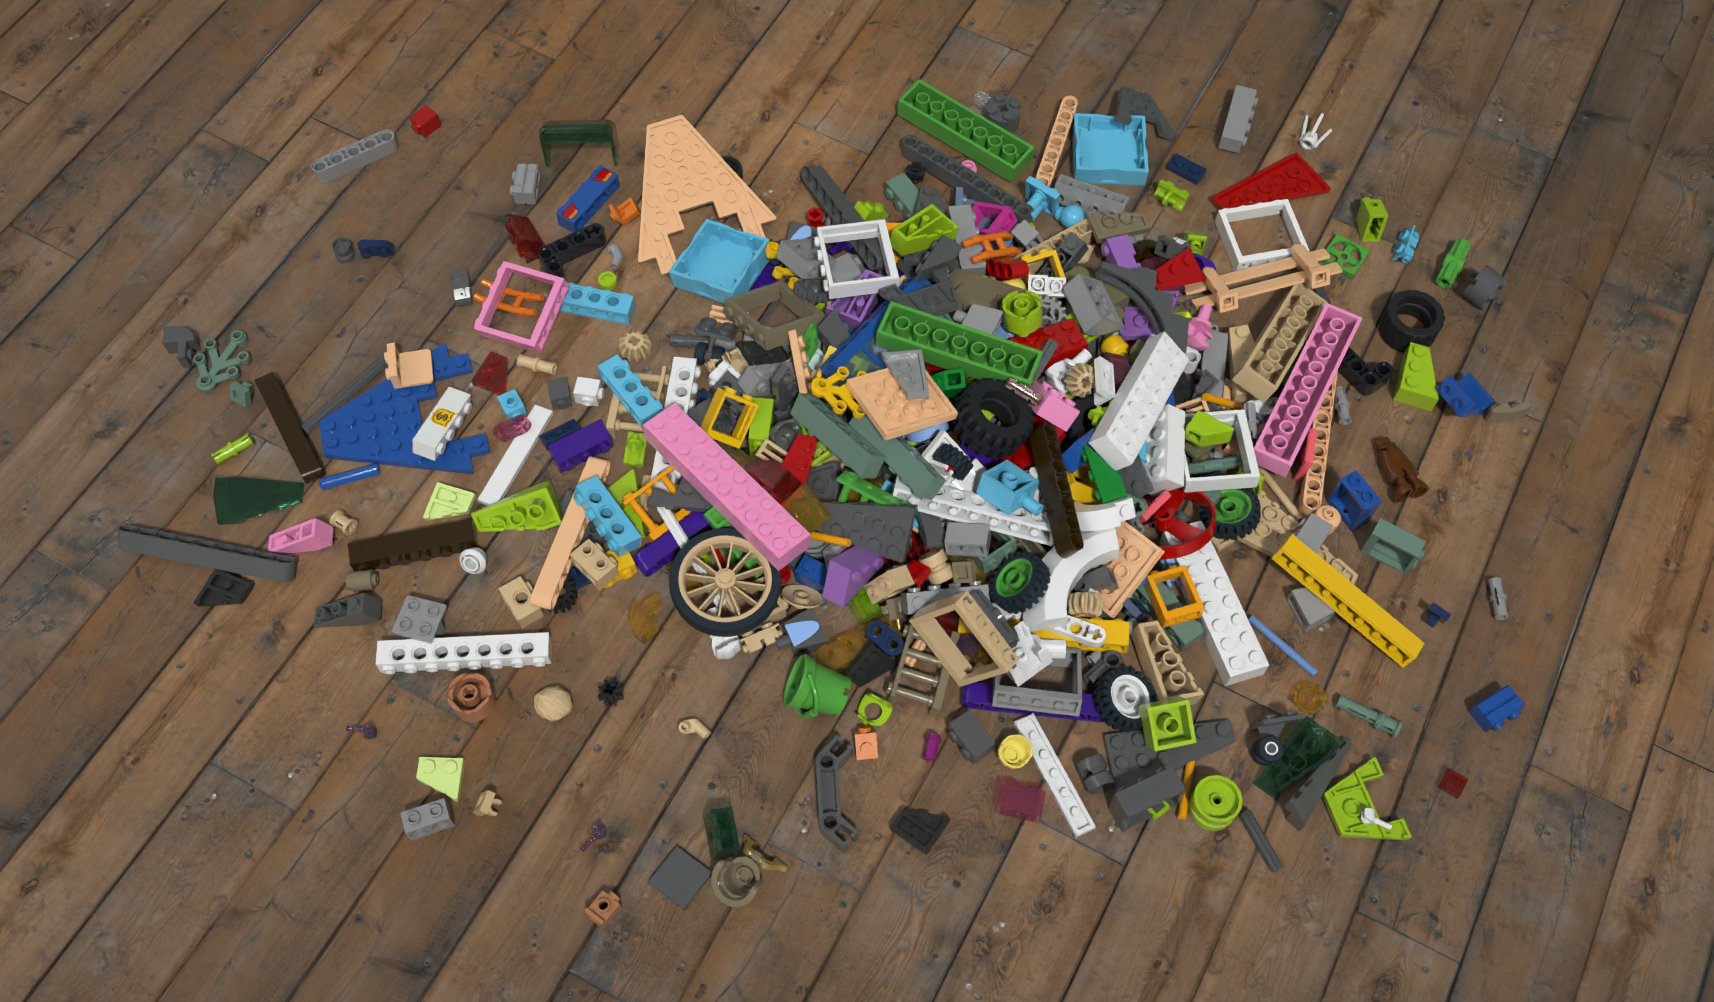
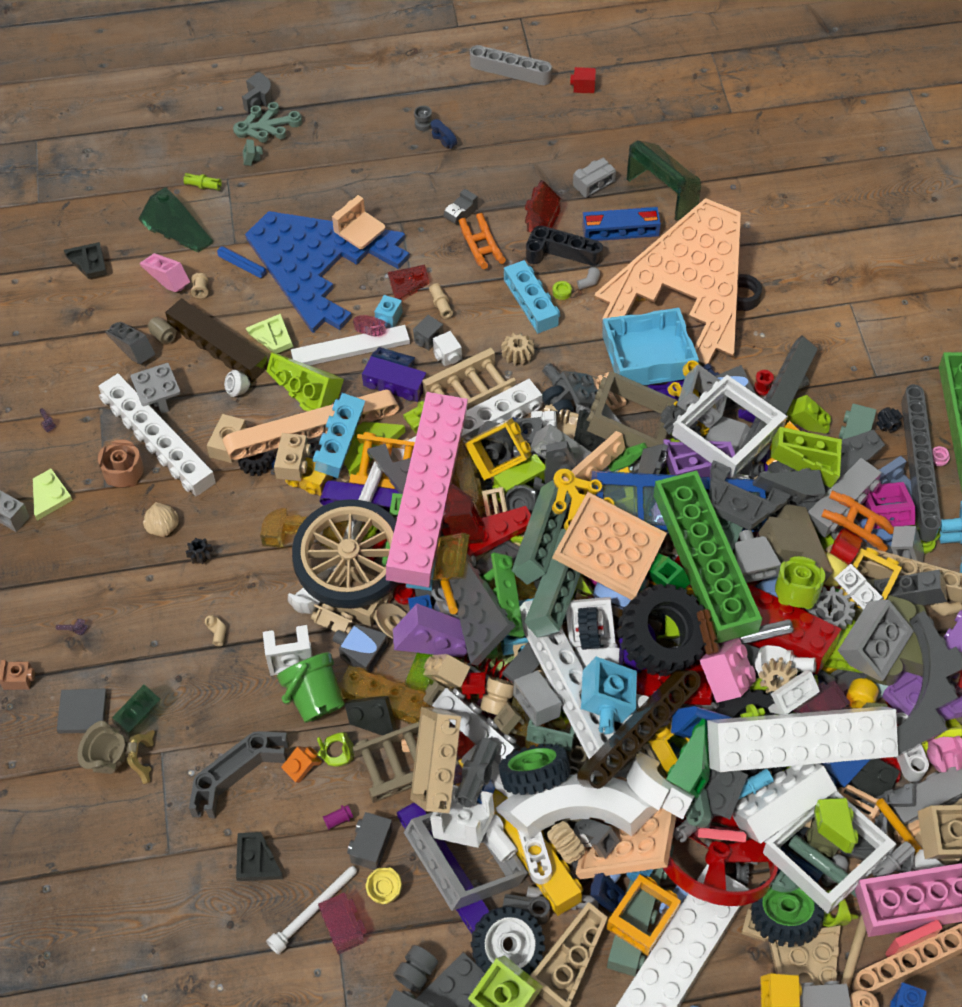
camera: 55 degrees right, 5 degrees down
(206, 553) = (107, 229): dark grey beam -> none
(289, 428) = (247, 199): dark brown beam -> none
(343, 395) = (298, 209): dark grey axle -> none
(442, 423) = (329, 279): white brick -> none
(484, 804) = (44, 535): tan tile -> none
(546, 319) = (485, 272): bright pink window -> none
(610, 373) = (466, 367): medium azure brick -> none
(625, 212) = (628, 252): orange bracket -> none
(776, 678) = (286, 655): none -> white panel
(883, 640) = (401, 706): dark blue plate -> none
(908, 372) = (639, 532): light grey wing -> none
(1000, 856) = (278, 941): none -> white piece
(1055, 776) = (391, 937): white tile -> none

